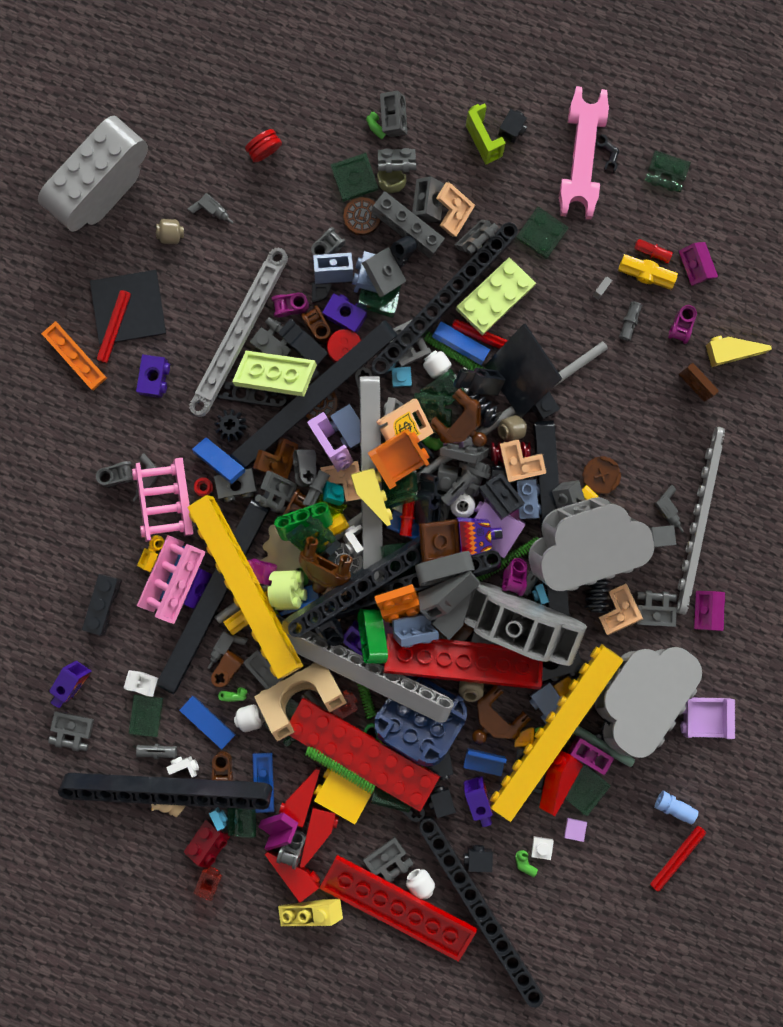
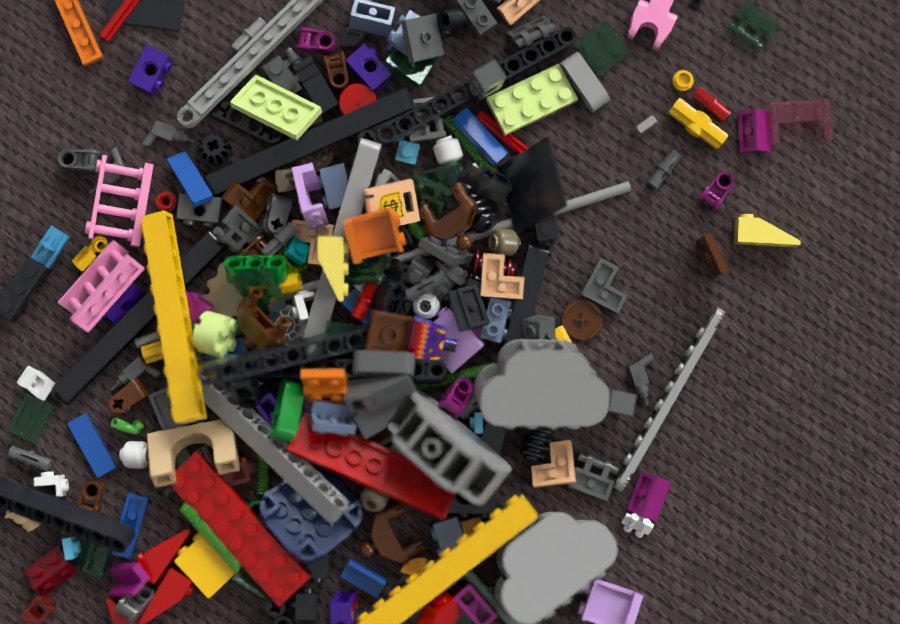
camera: 15 degrees right, 0 degrees up
(114, 559) = (50, 246): none -> dark azure hips
(183, 426) = (166, 133): none -> dark grey piece
(229, 317) = (248, 34): none -> light grey axle
(303, 434) = (285, 180): none -> dark tan bracket
(454, 290) = (486, 80): none -> dark grey brick
(537, 266) = (585, 81): none -> light grey beam
(608, 443) = (599, 288): none -> dark grey plate
(621, 238) = (683, 80): none -> yellow plate
(708, 637) = (637, 522): none -> white piece
(732, 234) = (799, 113): none -> clear pink plate

